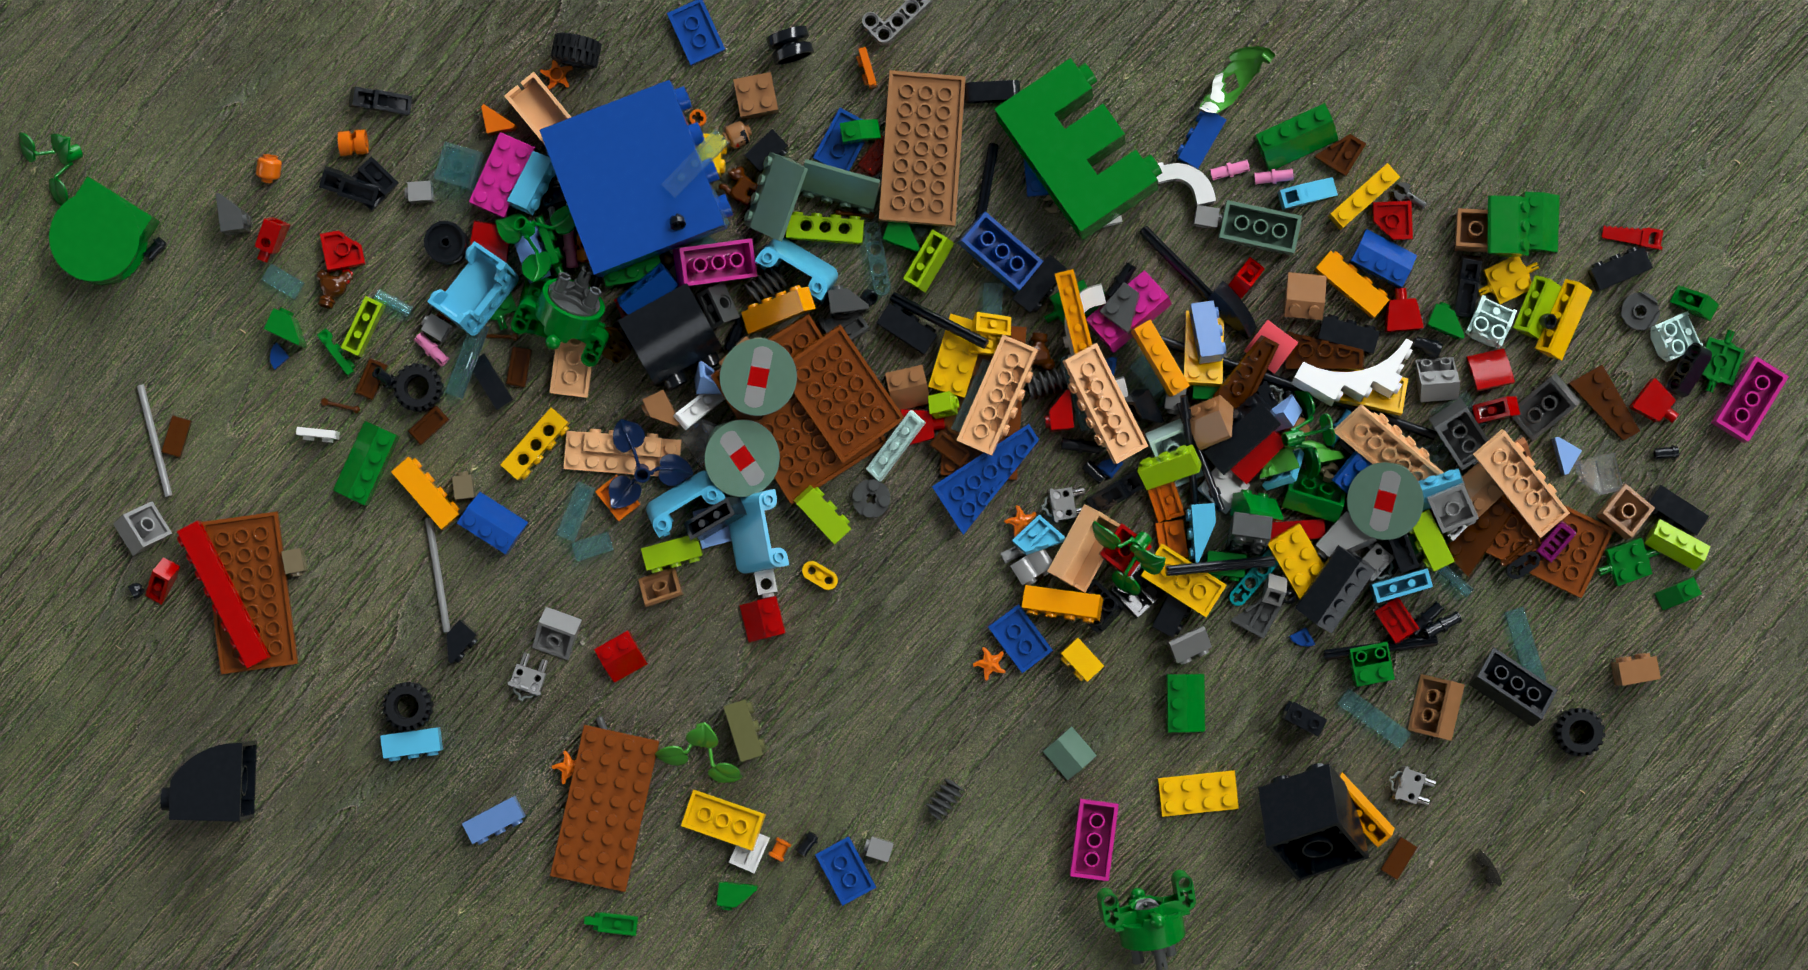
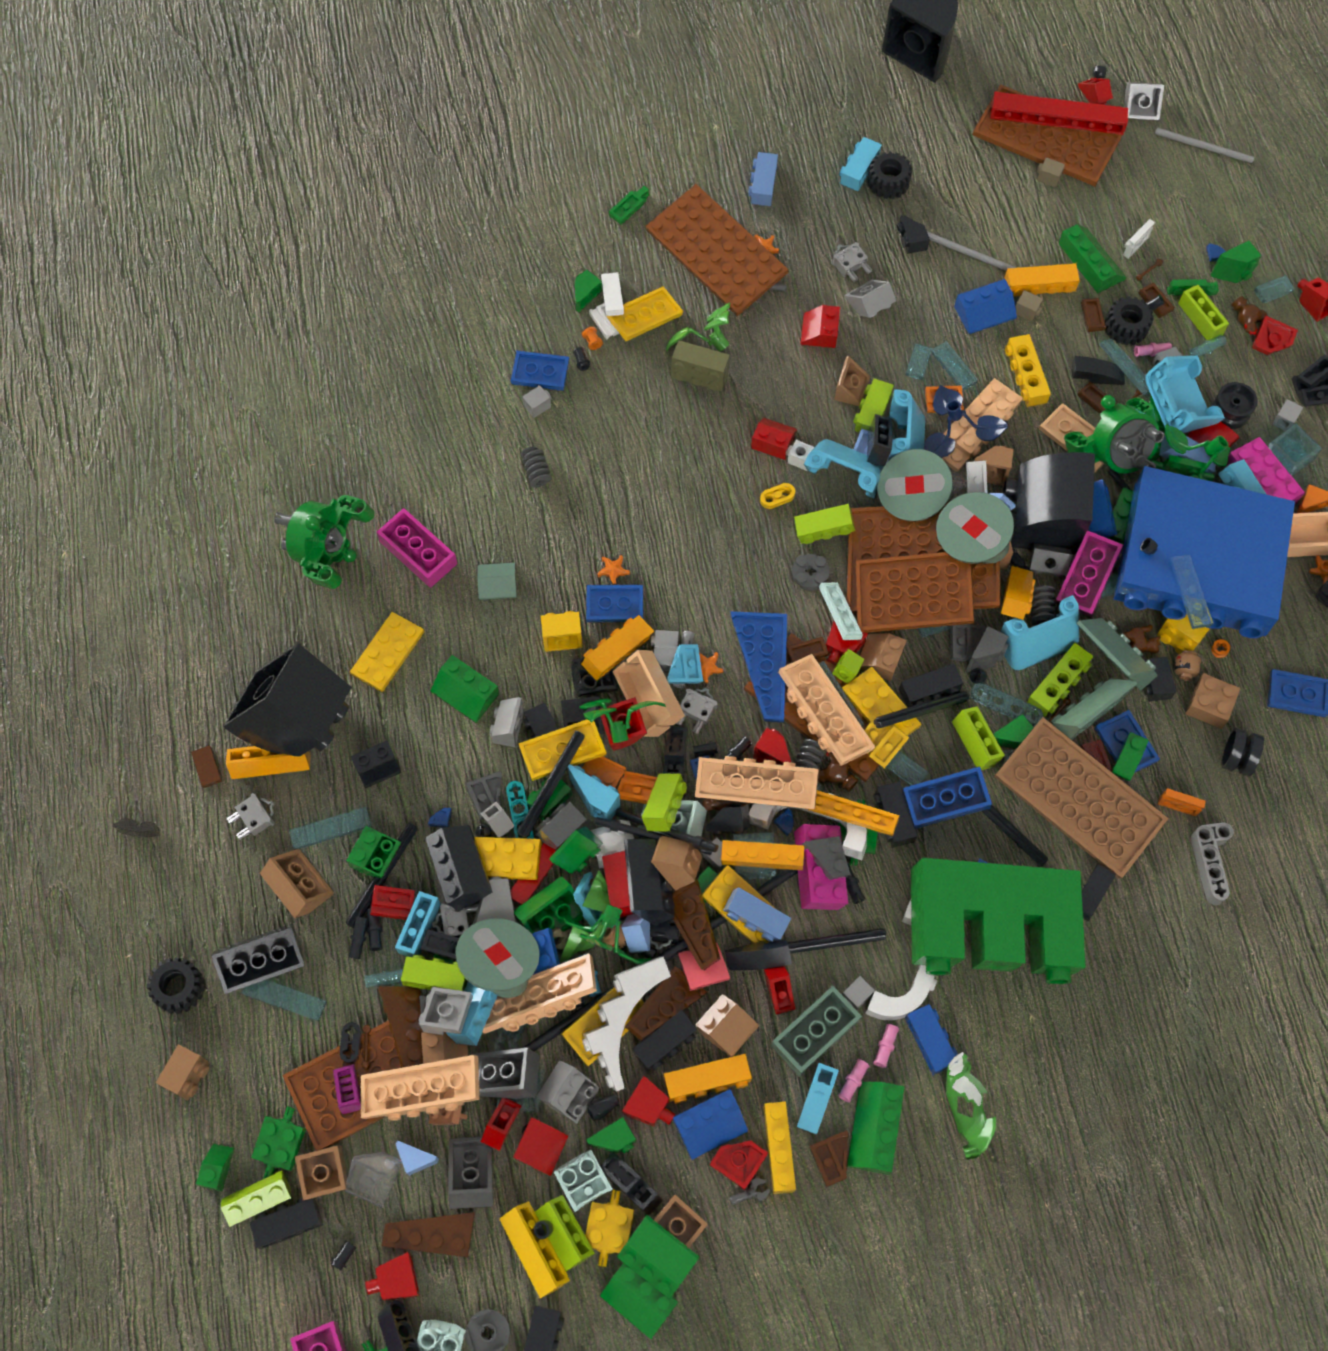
camera: 125 degrees right, 20 degrees down
(176, 436) = (1198, 159): reddish brown tile -> none
(726, 862) = (612, 294): none -> white tile

